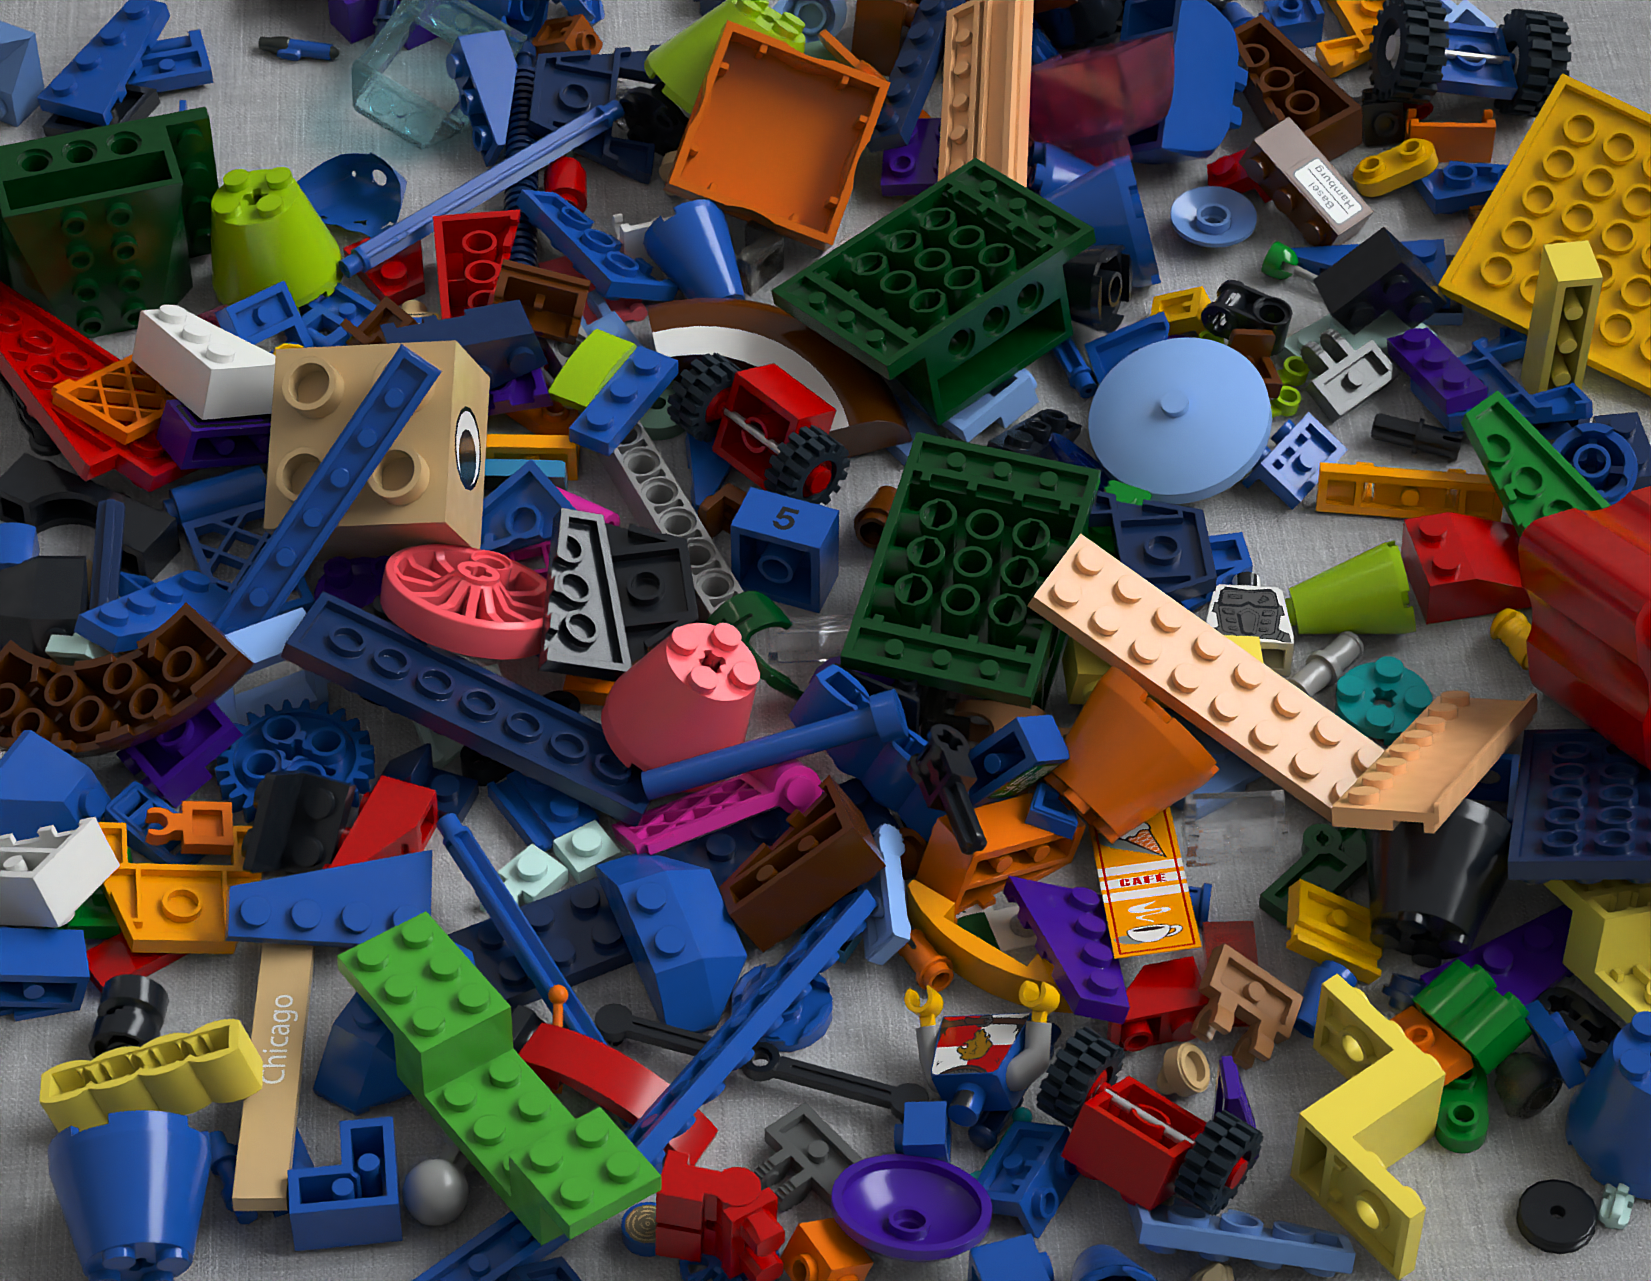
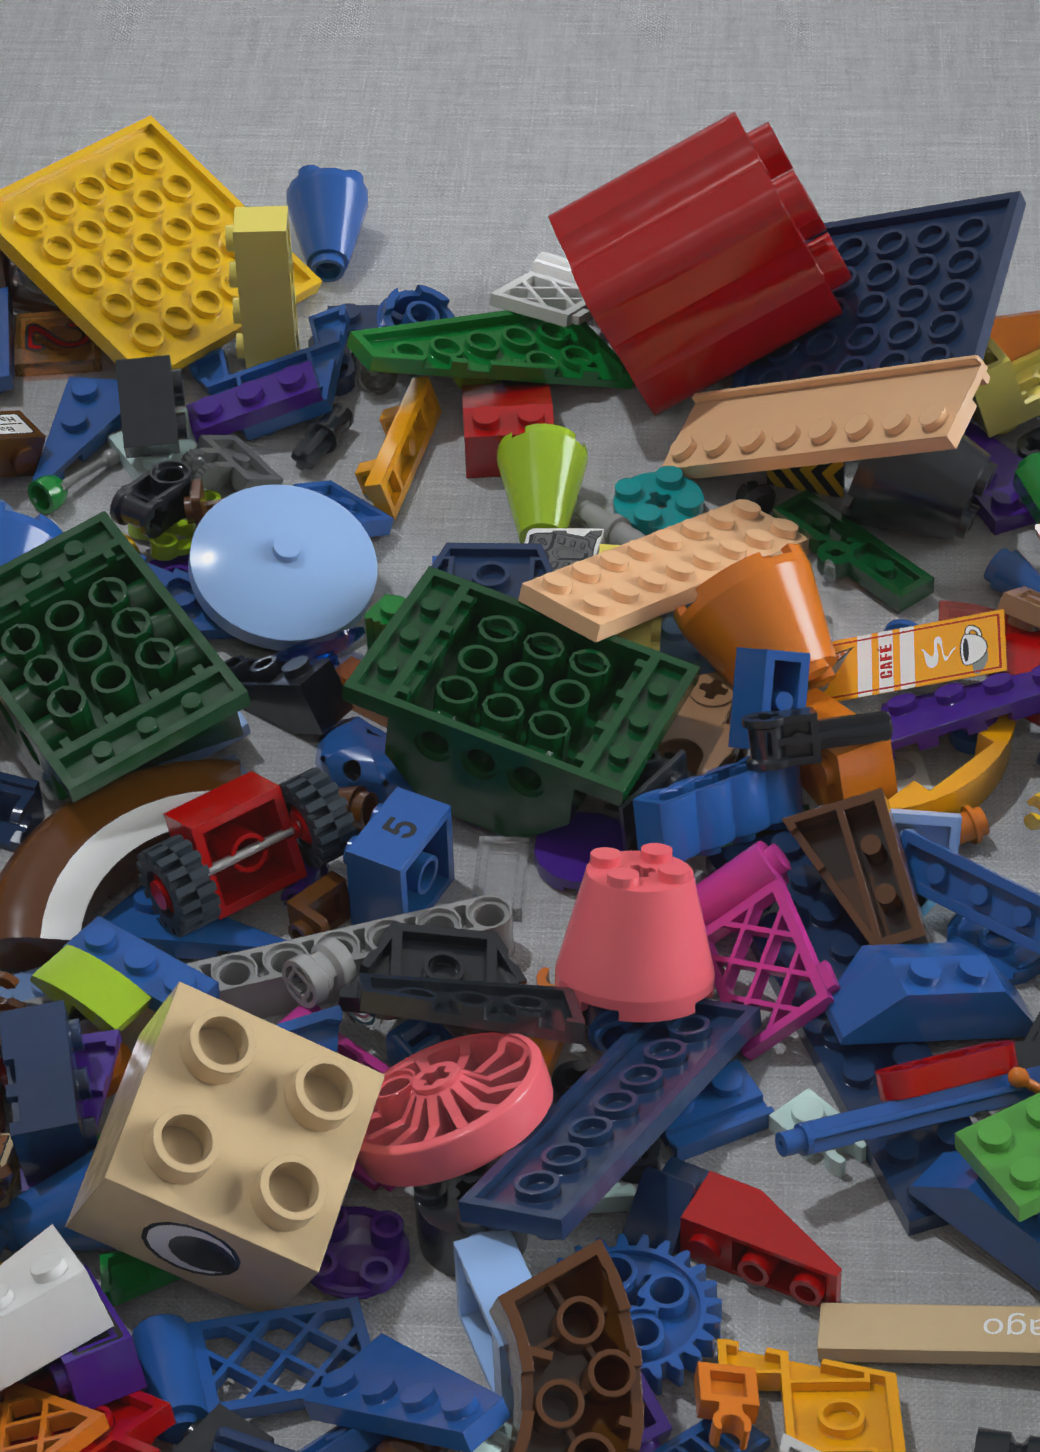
camera: 80 degrees left, 5 degrees down
(296, 822) = (755, 1290): black bracket -> none
(329, 492) = (354, 1179): blue tile -> none
(331, 904) = (876, 1262): blue wing -> none
(565, 944) = (946, 1070): none -> red beam
(584, 849) = (779, 1075): light aqua plate -> none
(625, 503) = (314, 975): none -> light grey wheel
(763, 615) = (514, 926): dark green helmet -> none
(881, 718) = (726, 760): blue piece -> none
(1050, 813) = (824, 694): blue tile -> none
(1332, 930) = (947, 555): yellow plate -> none
(1402, 990) = (1016, 529): dark blue plate -> none
(1513, 630) = (602, 410): yellow arm -> none

